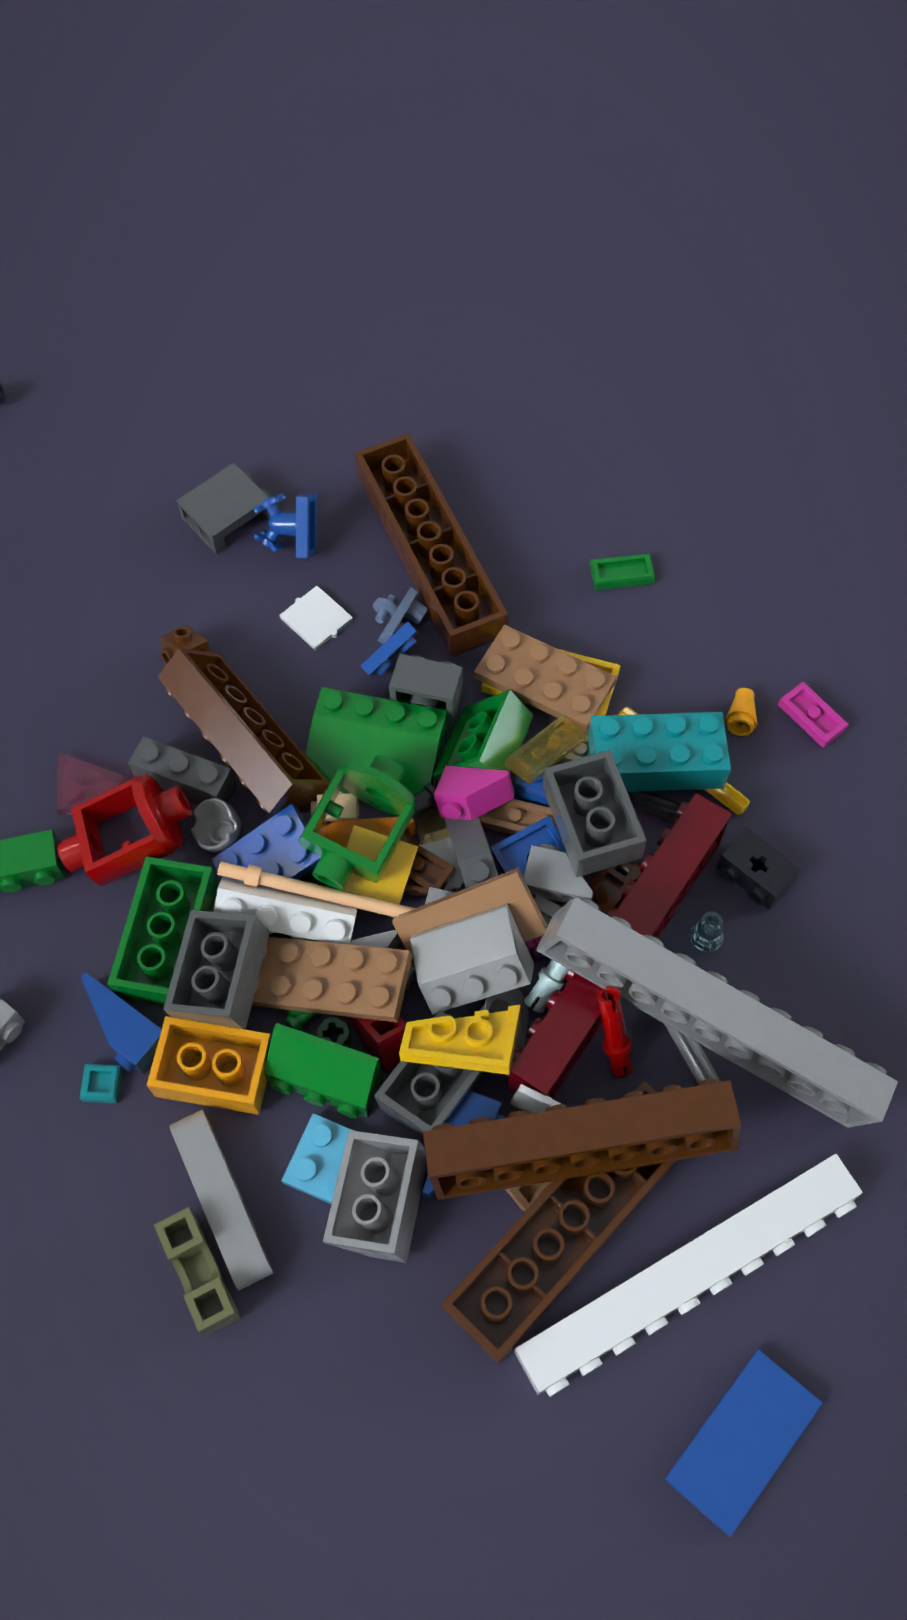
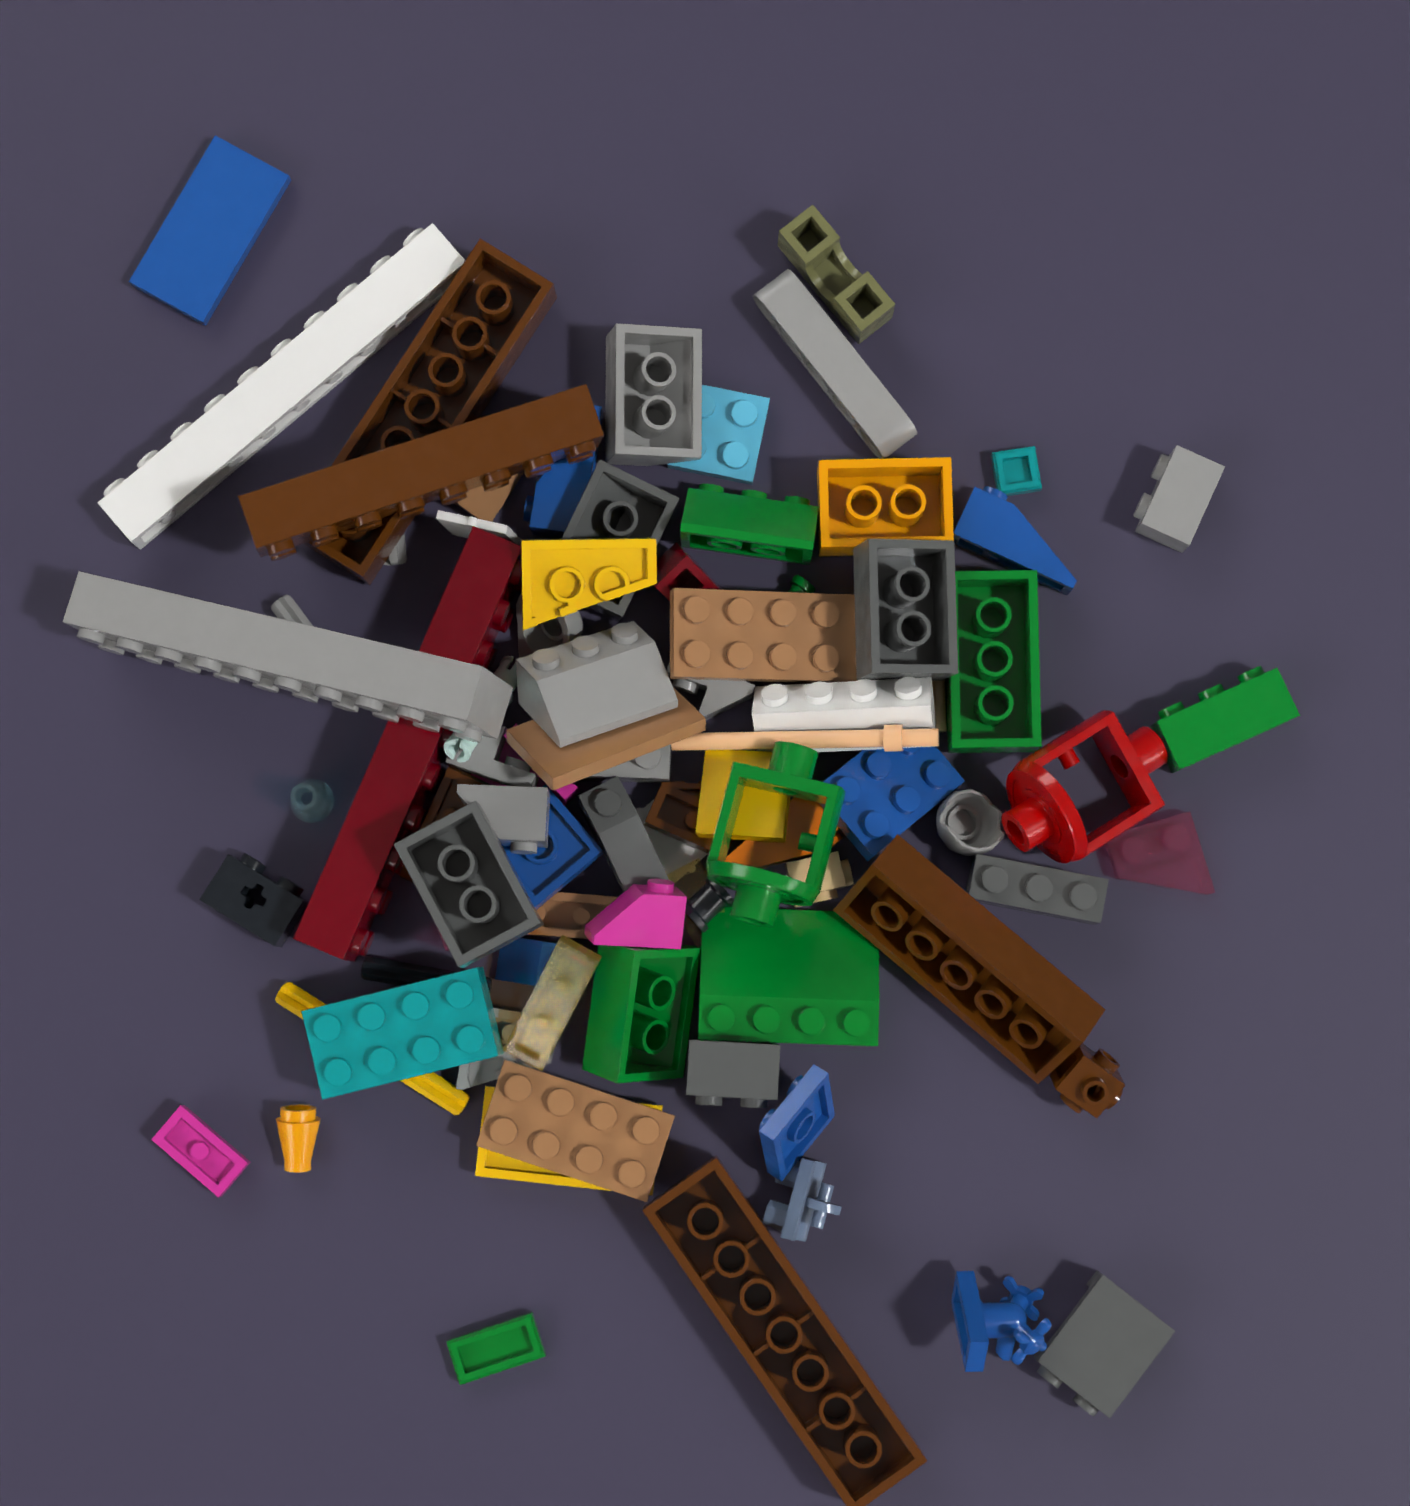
camera: 170 degrees right, 20 degrees up
(316, 617) = (922, 1185): white piece -> none
(335, 1025) = (754, 563): dark green bush -> none
(616, 1039) = (404, 625): red pin -> none

